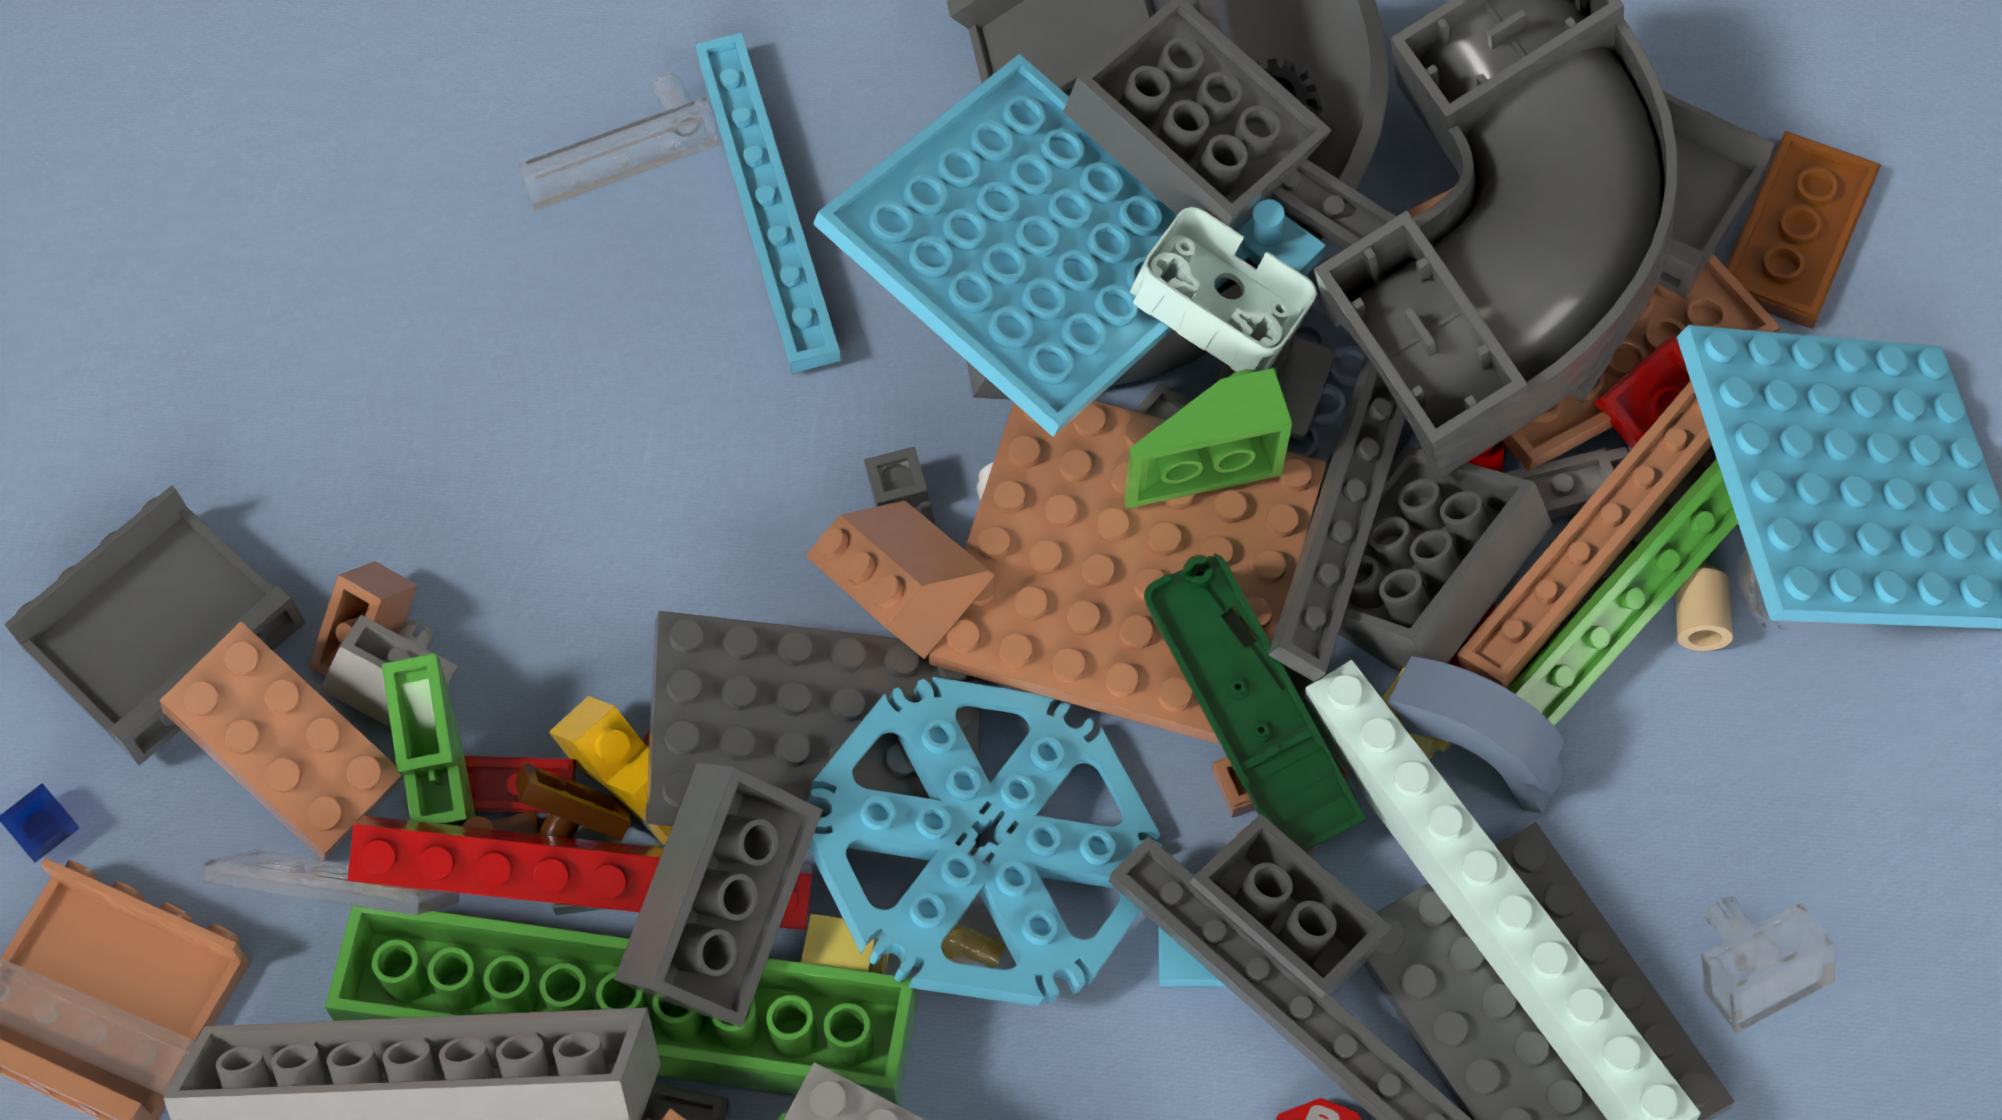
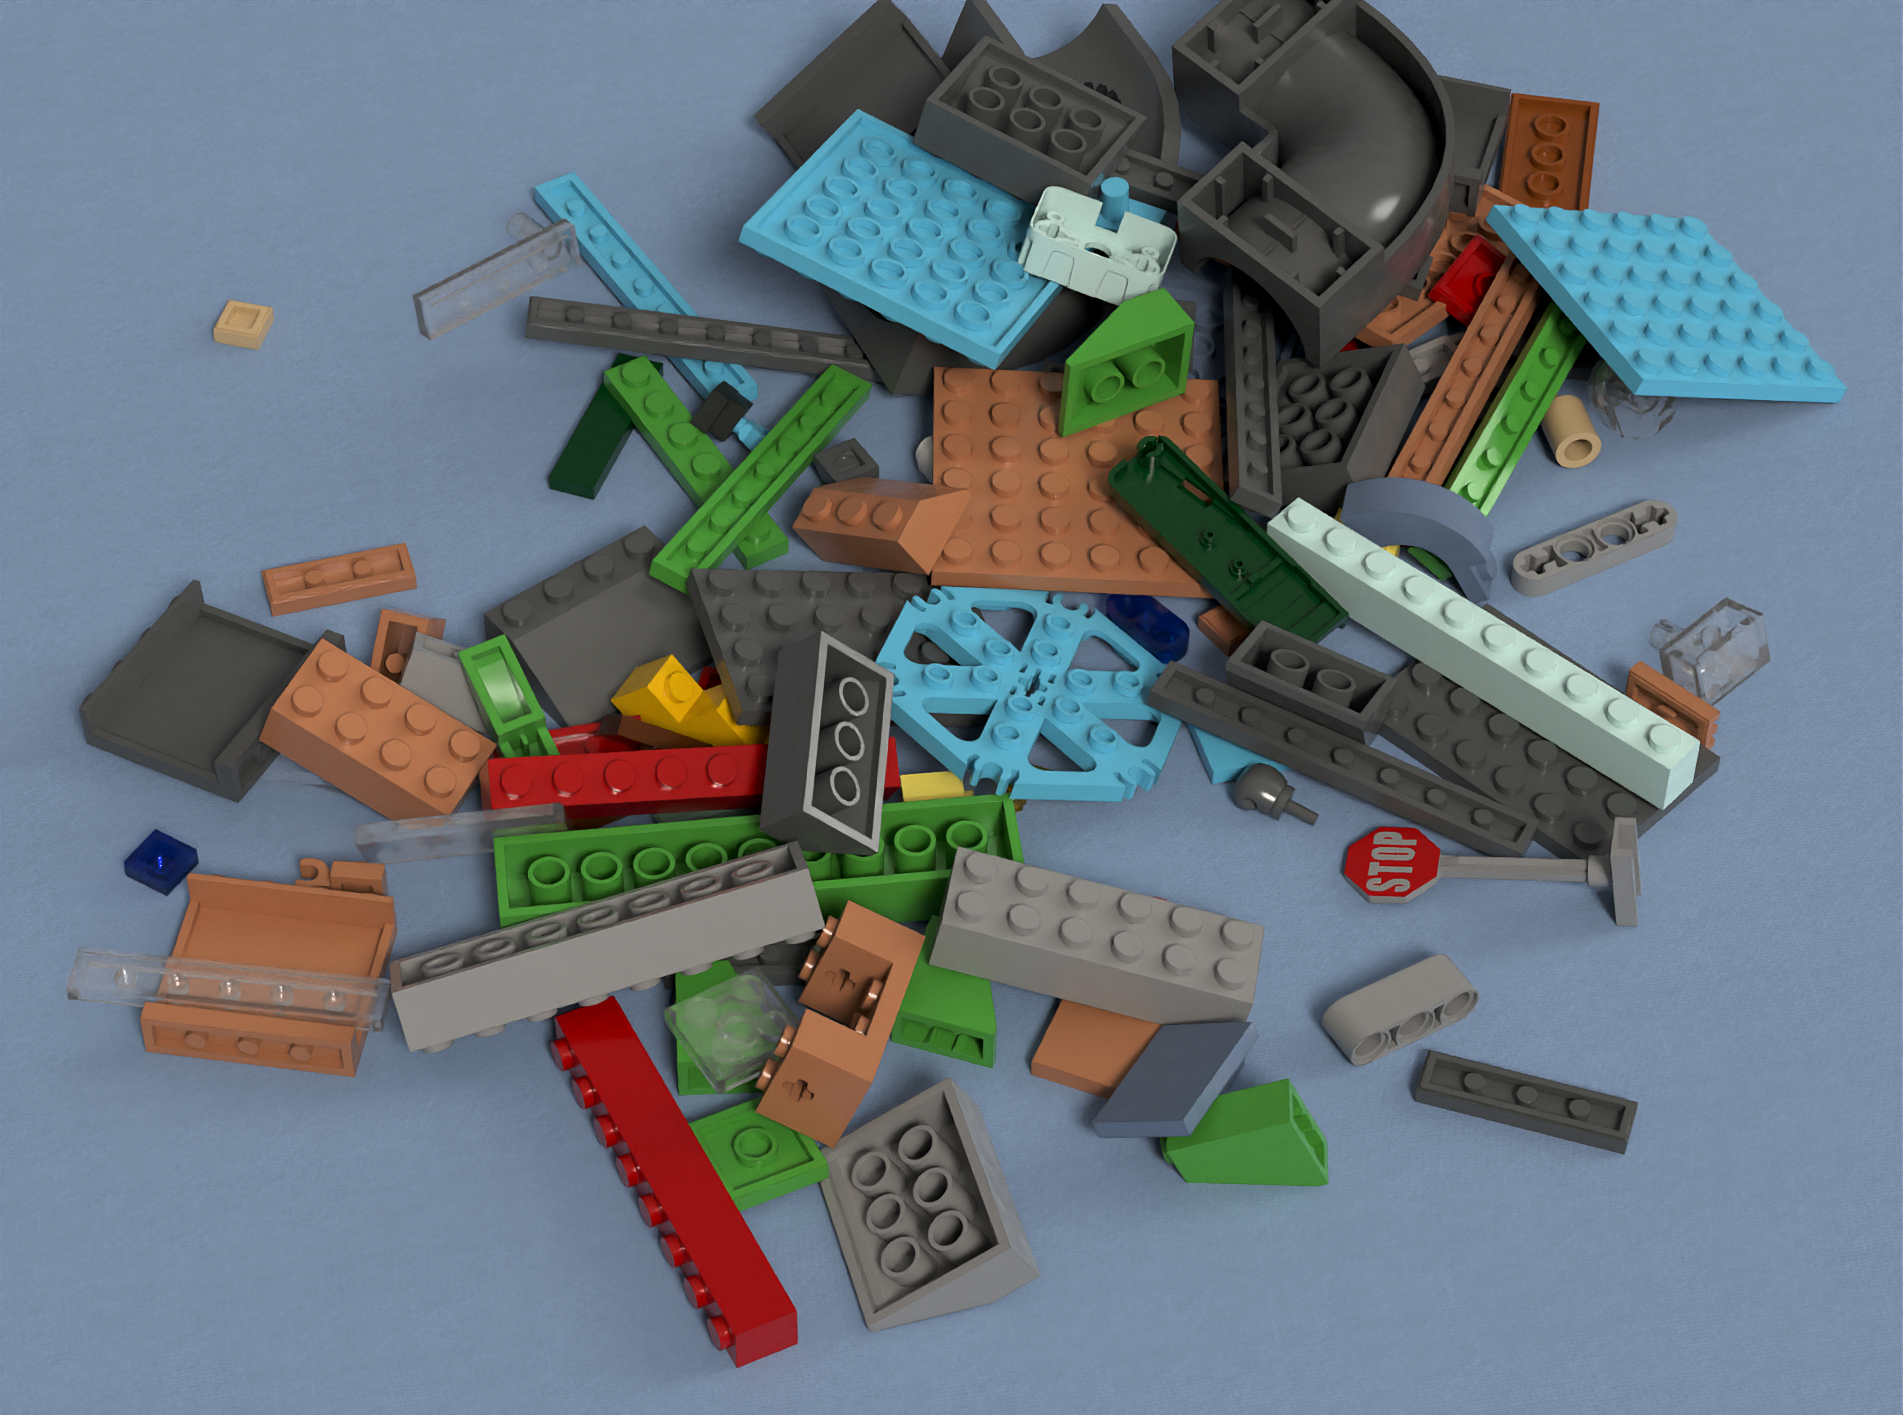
camera: 20 degrees left, 15 degrees down
(208, 902) = (344, 876): none -> nougat plate
(339, 497) = (339, 579): none -> nougat tile
(354, 151) = (243, 324): none -> tan tile
(568, 633) = (595, 625): none -> dark grey slope
(672, 362) = (595, 443): none -> dark green tile
(746, 435) = (685, 449): none -> bright green plate
(771, 275) = (695, 337): none -> dark grey tile
(790, 384) = (725, 413): none -> pearl dark grey piece
(794, 484) = (761, 477): none -> bright green plate
(1153, 766) = (1150, 625): none -> clear blue plate
(1209, 1018) = (1266, 790): none -> dark grey piece
(1680, 763) = (1650, 518): none -> light grey beam
(1699, 1020) = (1672, 703): none -> nougat tile

